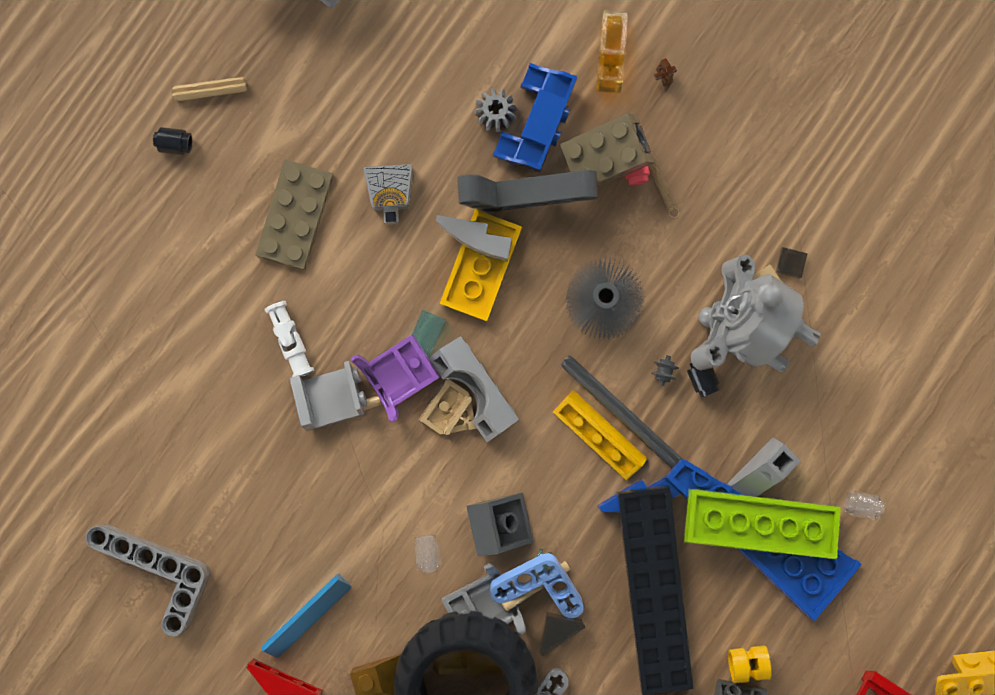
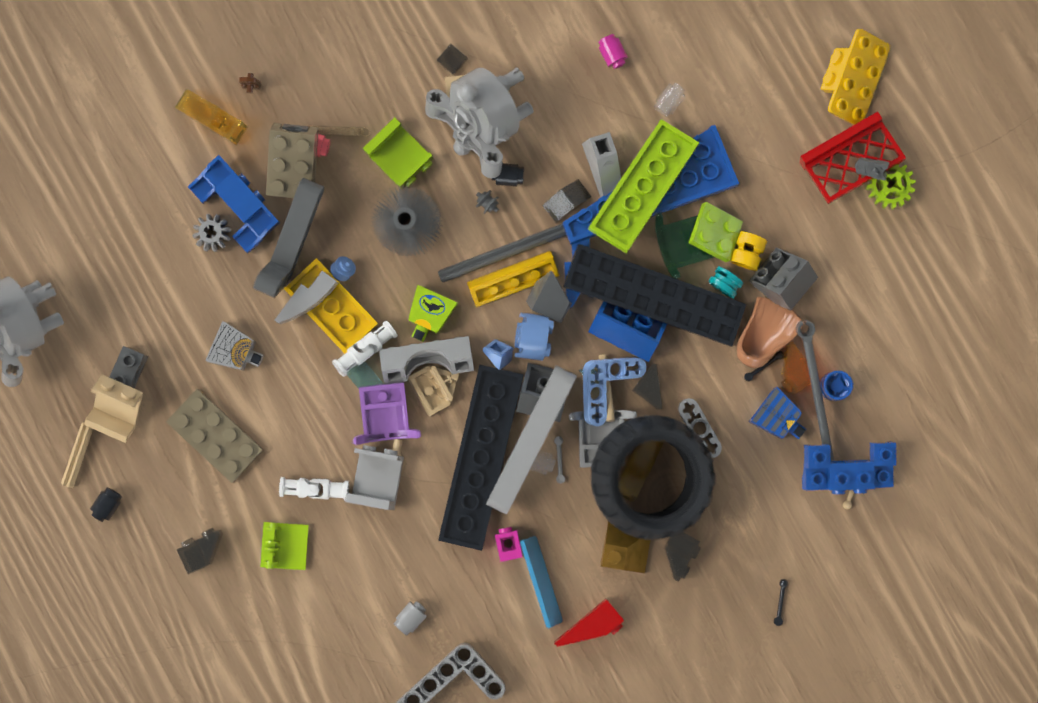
camera: 65 degrees left, 0 degrees up
(169, 258) = (201, 552): none -> clear smoke slope
(205, 501) = (410, 617): none -> light grey brick
(217, 338) = (284, 546): none -> lime hinge
(270, 102) = (114, 408): none -> tan panel
(314, 95) = (128, 367): none -> dark grey brick
(320, 571) = (508, 553): none -> dark pink brick
(402, 492) = (480, 457): none -> black plate
(421, 583) = (558, 441): none -> light grey hinge
(444, 538) = (531, 439): none -> light grey beam
(460, 323) = (367, 346): none -> white piece
(516, 458) = (498, 353): none -> medium blue slope
(523, 367) = (429, 312): none -> lime torso
(524, 258) = (343, 268): none -> medium blue wheel
(551, 486) = (533, 336): none -> medium blue brick
(598, 482) = (549, 298): none -> dark grey slope
(605, 580) = (628, 330): none -> blue slope
(668, 256) = (398, 154): none -> lime panel
(705, 656) = (725, 282): none -> teal wheel
(706, 450) = (566, 200): none -> clear smoke slope
(725, 594) = (675, 245): none -> clear green piece
(752, 621) = (715, 232): none -> lime plate
(883, 422) = (612, 51): none -> dark pink brick

